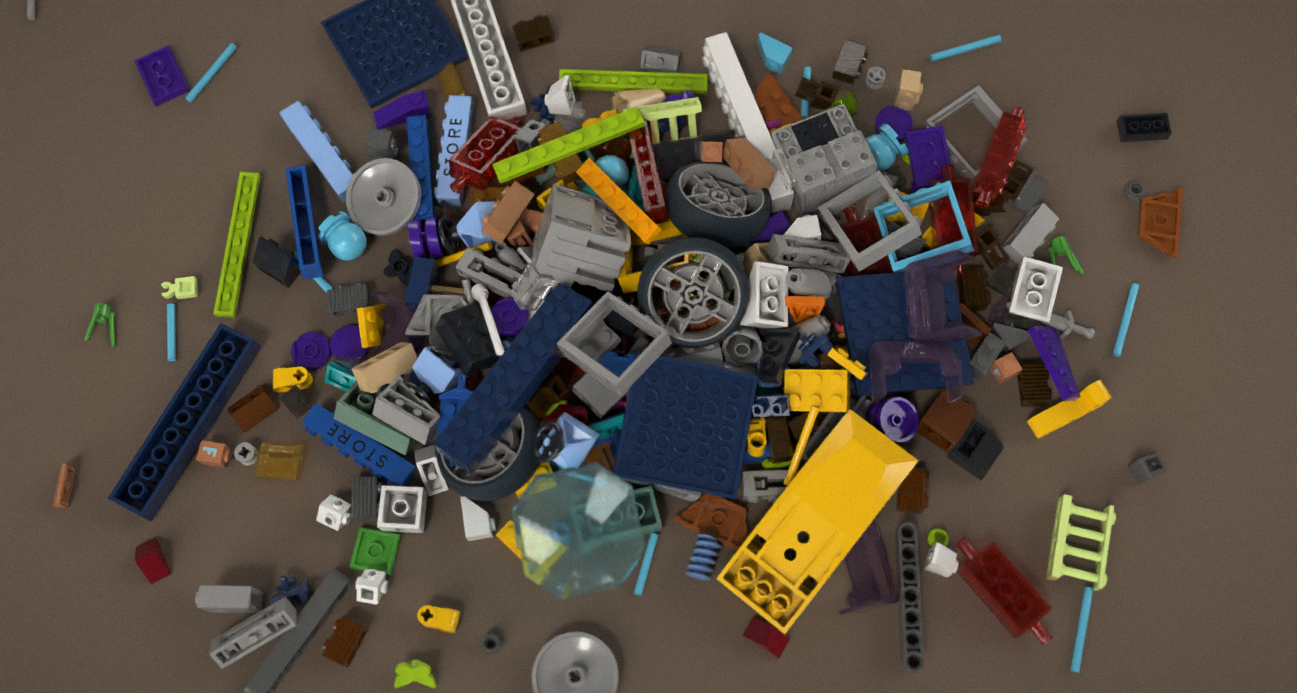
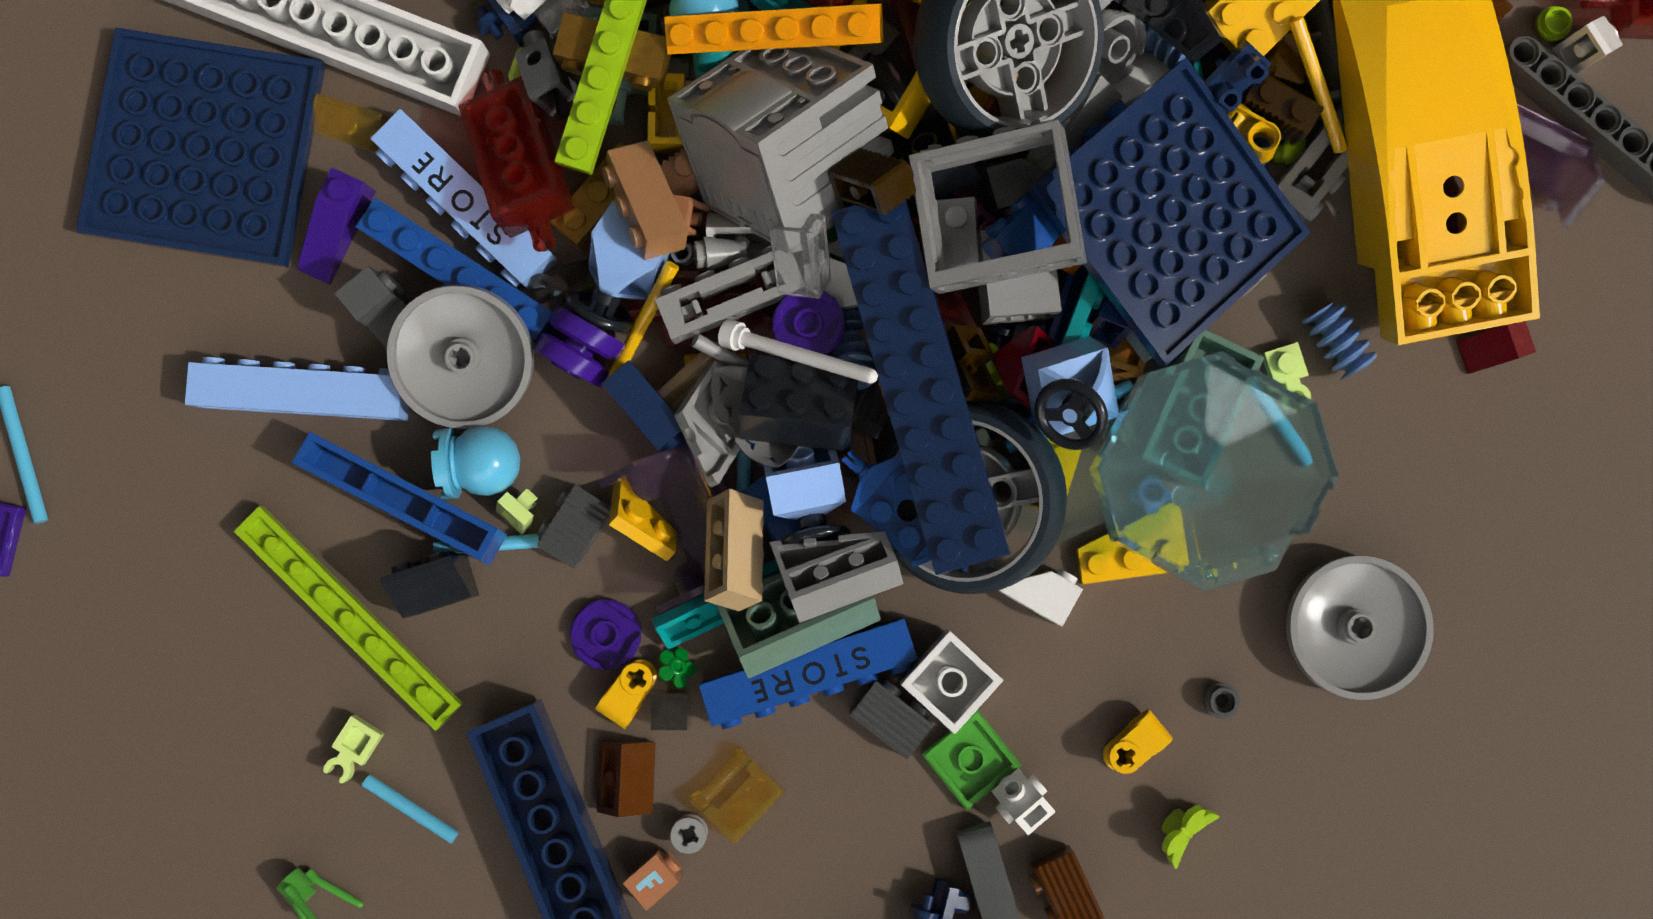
camera: 55 degrees left, 15 degrees up
(318, 390) = (675, 667): none -> green plant
(334, 512) = (879, 774): white brick -> none
(338, 273) = (517, 510): none -> yellowish green tile
(347, 343) = (639, 576): dark purple tile -> none
(398, 267) = (584, 416): black animal -> none
(429, 470) = (924, 602): white slope -> none
(584, 285) = (872, 181): none -> dark brown brick
(671, 547) = (1287, 367): none -> yellowish green plate
(716, 518) = (1305, 281): dark orange wing -> none

